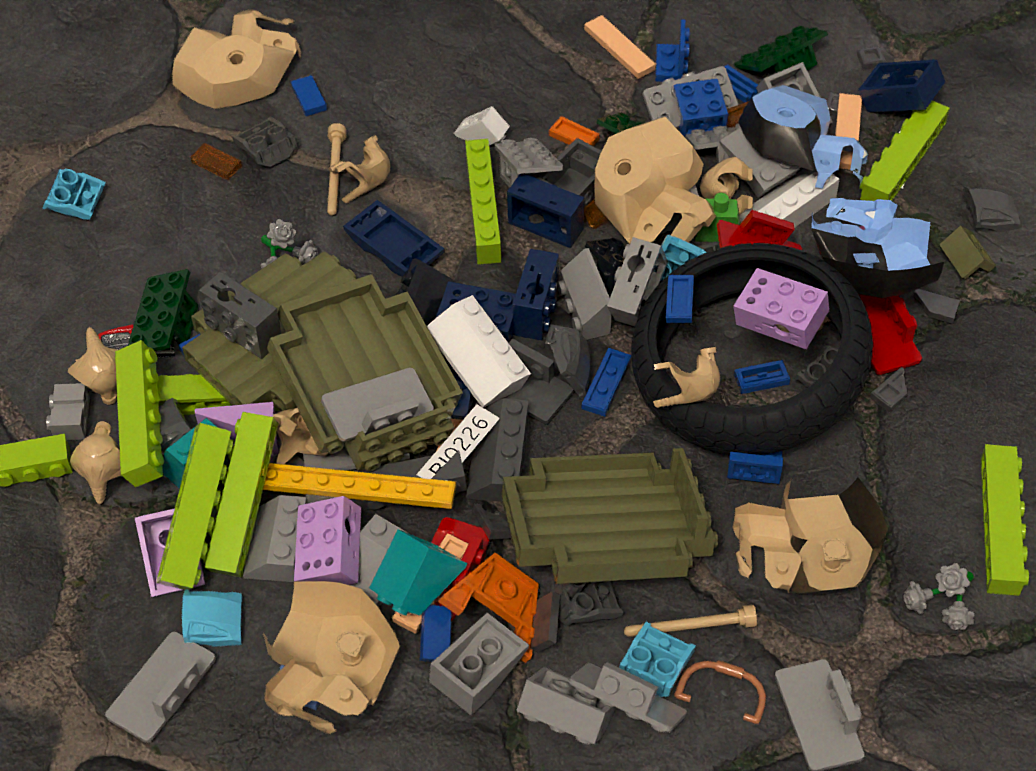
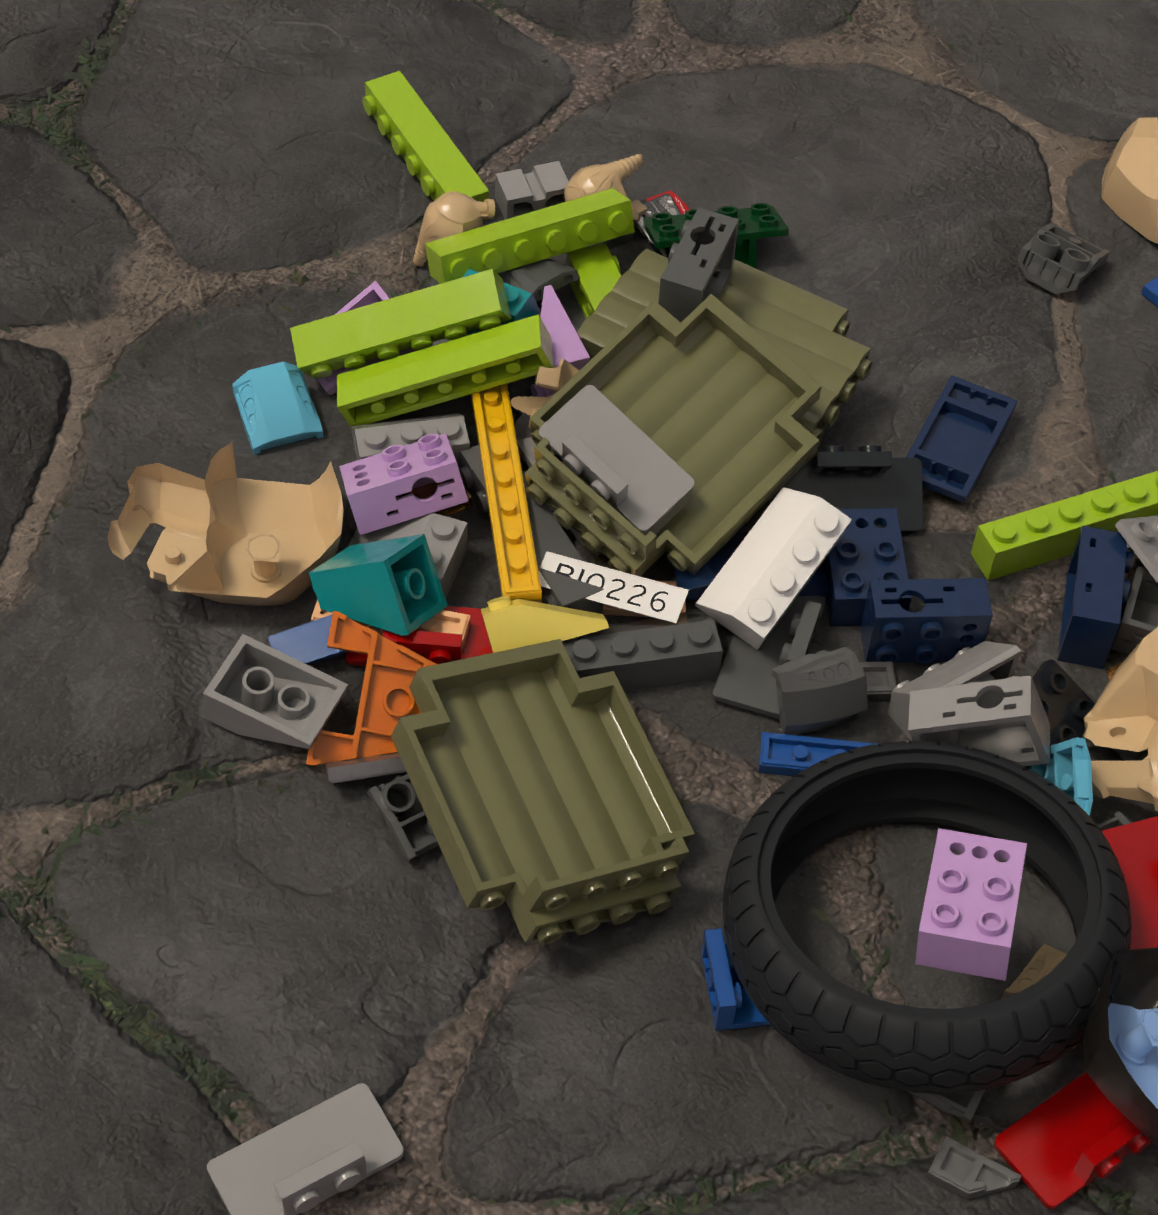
camera: 70 degrees right, 0 degrees up
(74, 194) = (871, 99): medium azure slope -> none
(160, 687) = (166, 390): light grey bracket -> none
(216, 161) = (1005, 221): clear orange tile -> none
(281, 235) = (882, 304): light grey plant -> none
(336, 135) = (1119, 331): tan piece -> none
(370, 172) = (1057, 377): tan piece -> none
(476, 495) = (527, 622): none -> light yellow slope
(556, 702) = (241, 823): light grey slope -> none
(629, 694) = (263, 891): light grey bracket -> none
(657, 658) = (349, 912): medium azure slope -> none
(680, 299) = (954, 775): blue tile -> none
(696, 385) = (783, 823): tan piece -> none
(730, 670) = (355, 1027): nougat piece -> none
(744, 616) = (451, 1025): tan piece -> none
(763, 379) = (909, 984): blue tile -> none
(813, 541) = (596, 1090): tan piece -> none

